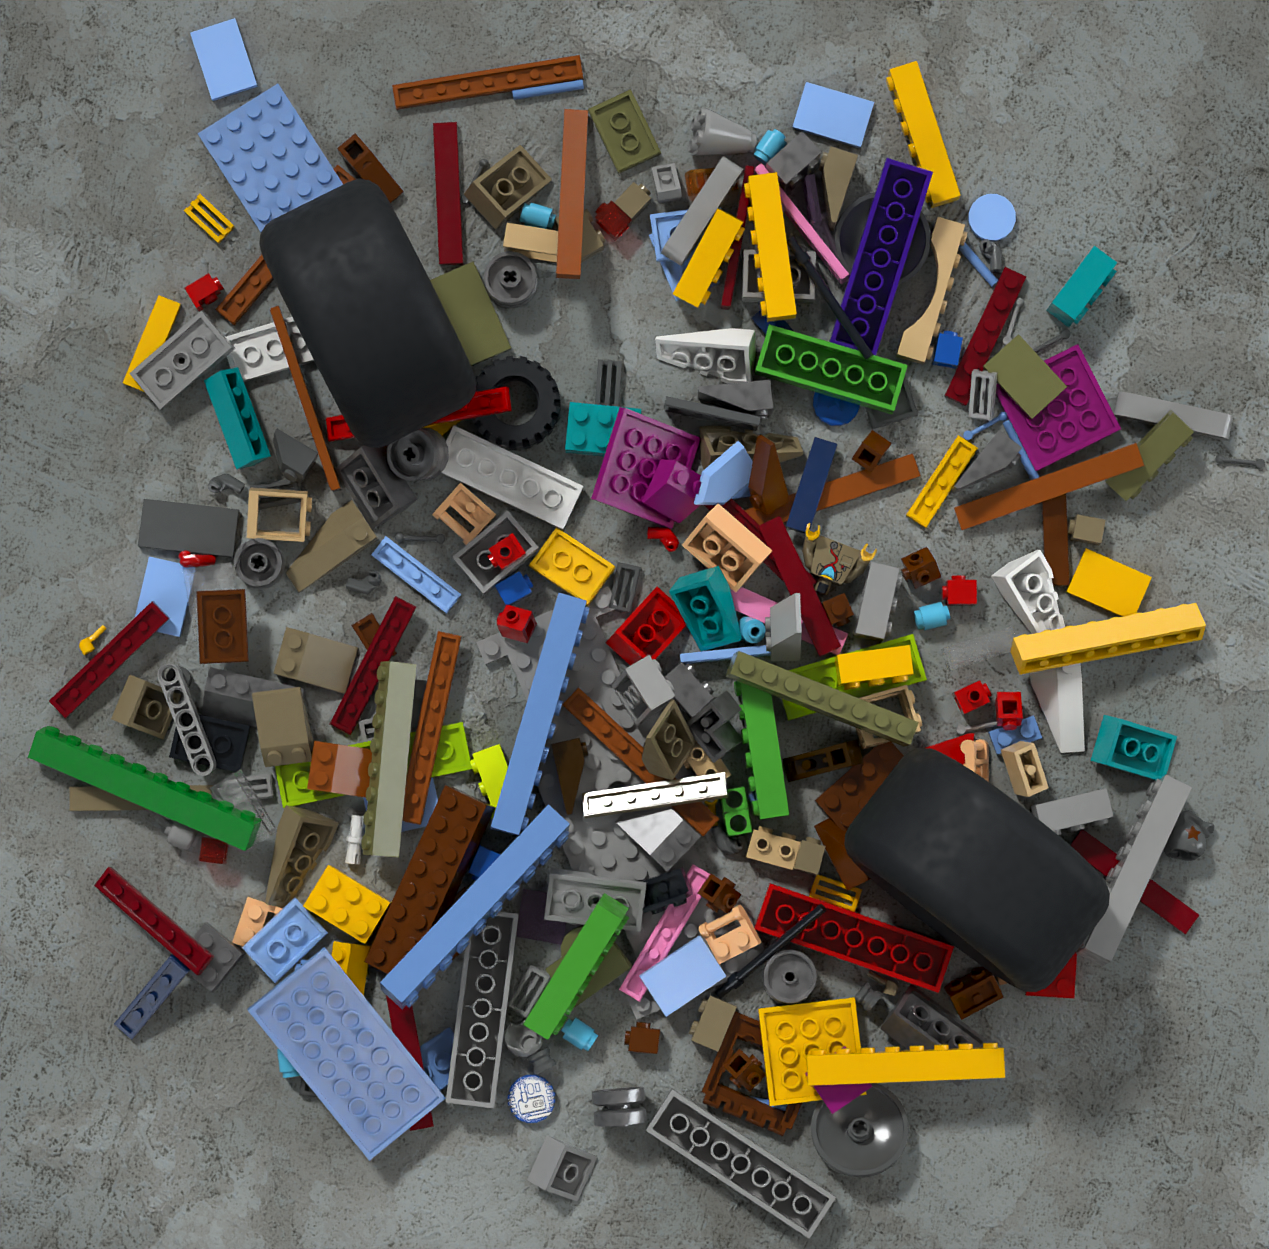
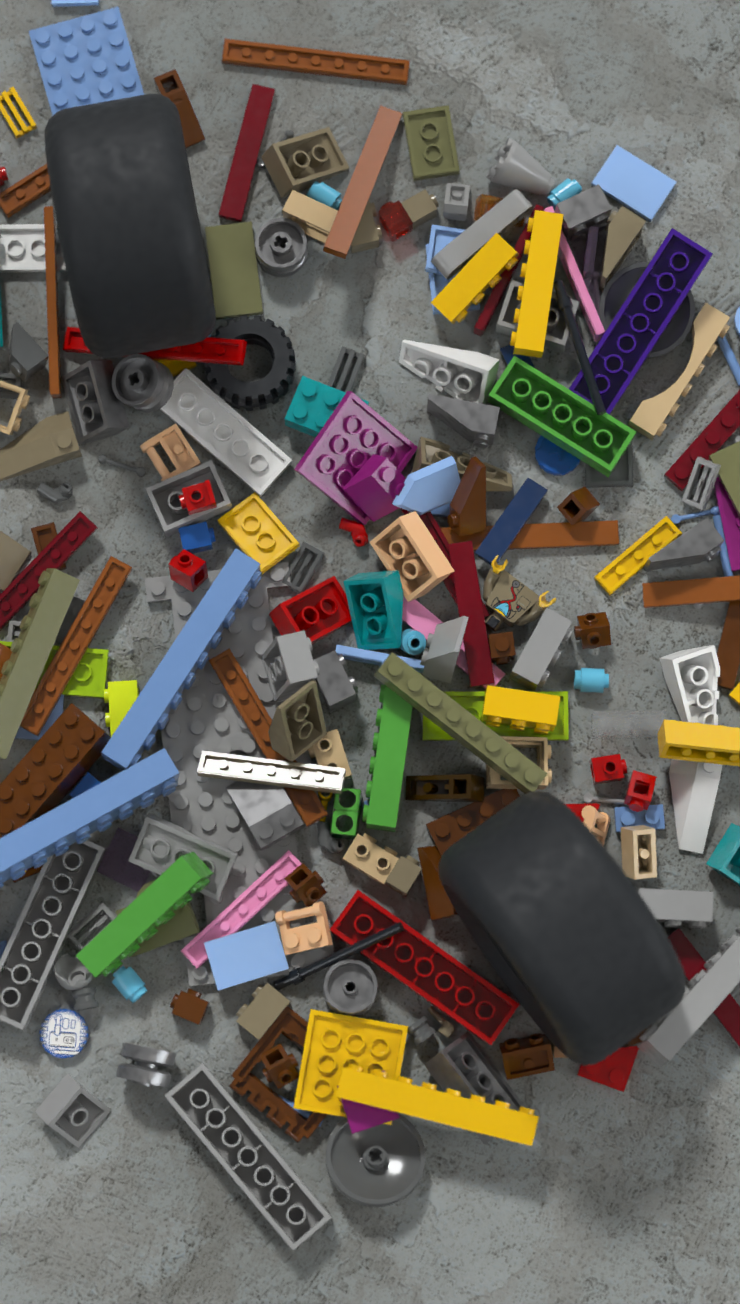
camera: 15 degrees right, 5 degrees down
(416, 574) = (107, 498): light blue tile -> none
(547, 89) = (370, 84): medium blue bar -> none
(569, 764) = (198, 720): dark brown slope -> none
(665, 890) = (255, 865): black bracket -> none
(711, 413) = (435, 426): dark grey tile -> none
(713, 729) = (346, 722): flat silver brick -> none
(854, 899) = (436, 932): yellow tile -> none
(923, 132) = (714, 223): yellow brick -> none
(947, 350) = (679, 432): blue brick -> none
(960, 591) = (625, 664): red brick -> none

